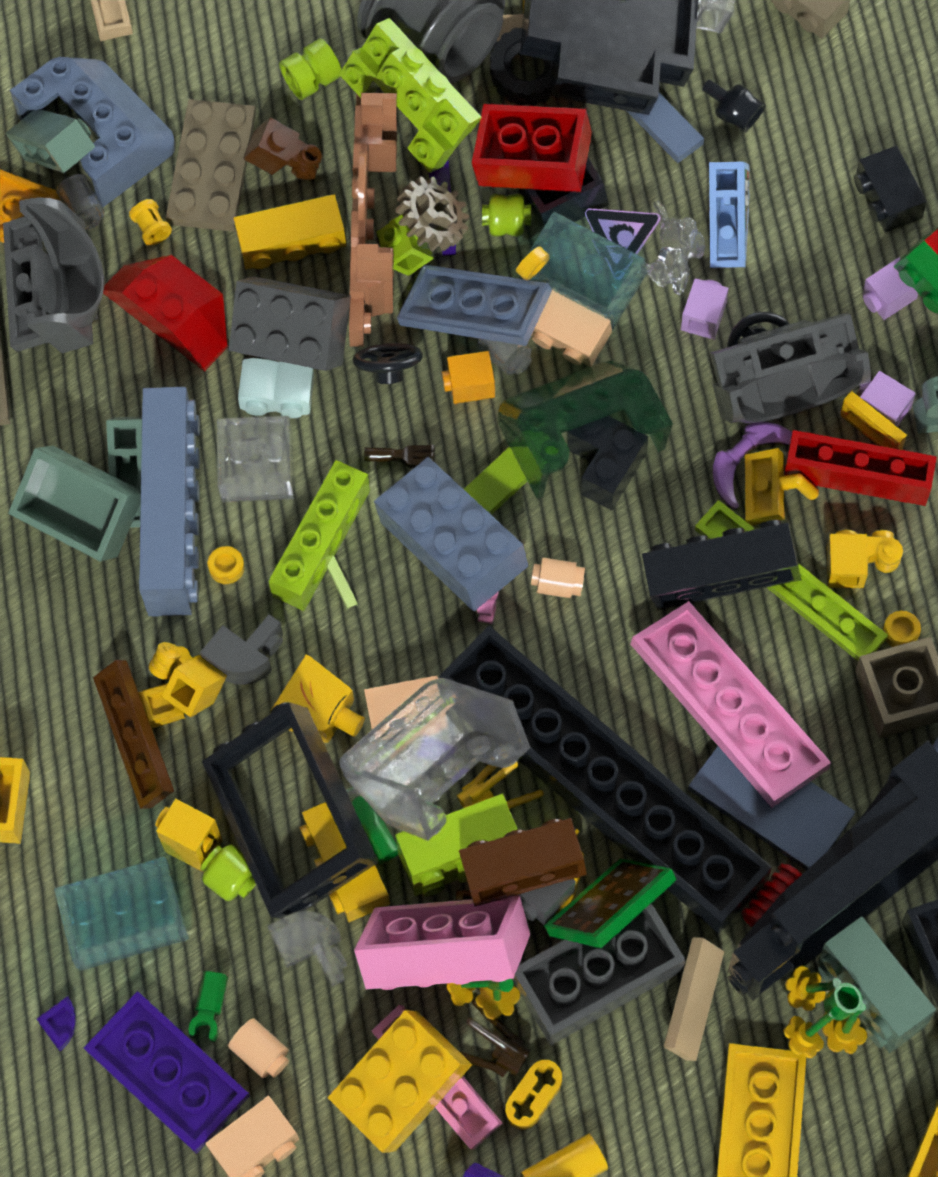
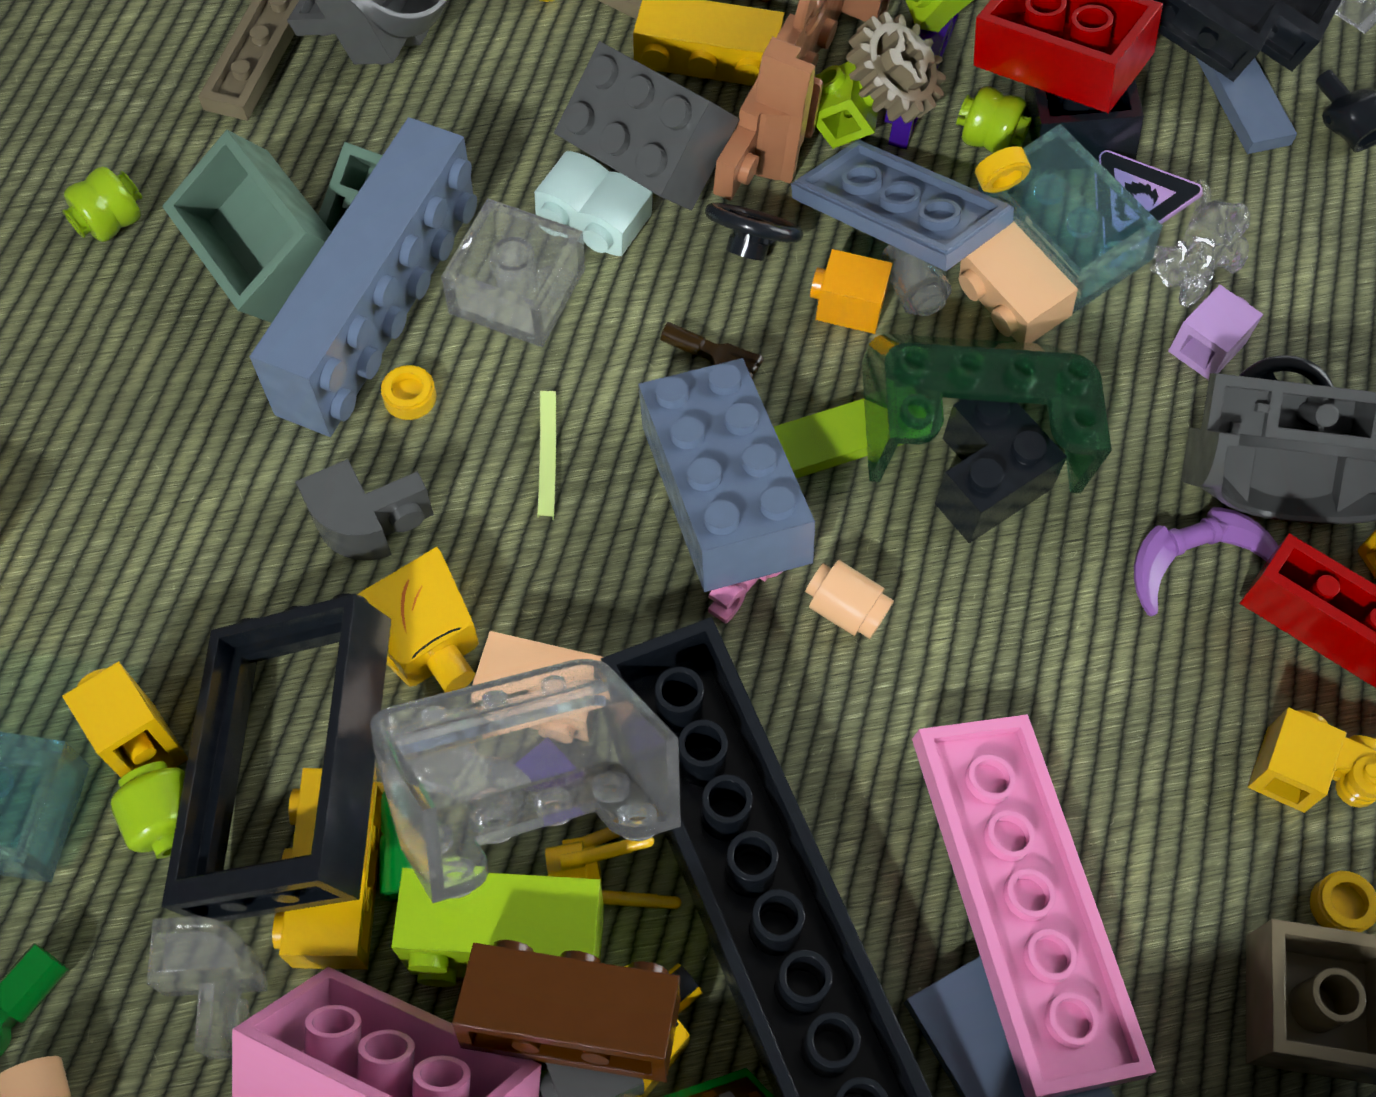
camera: 20 degrees right, 5 degrees down
(133, 734) = (151, 556): reddish brown plate -> none
(159, 709) = (218, 534): yellow tile -> none
(173, 306) = (521, 69): red wedge -> none
(192, 680) = (264, 514): yellow brick -> none
(319, 535) = (546, 402): lime brick -> none
(721, 565) = (1106, 680): black brick -> none
(728, 213) = (1298, 227): light blue slope -> none
(766, 486) = (1213, 599): yellow plate -> none
(809, 596) = (1199, 761): lime plate -> none

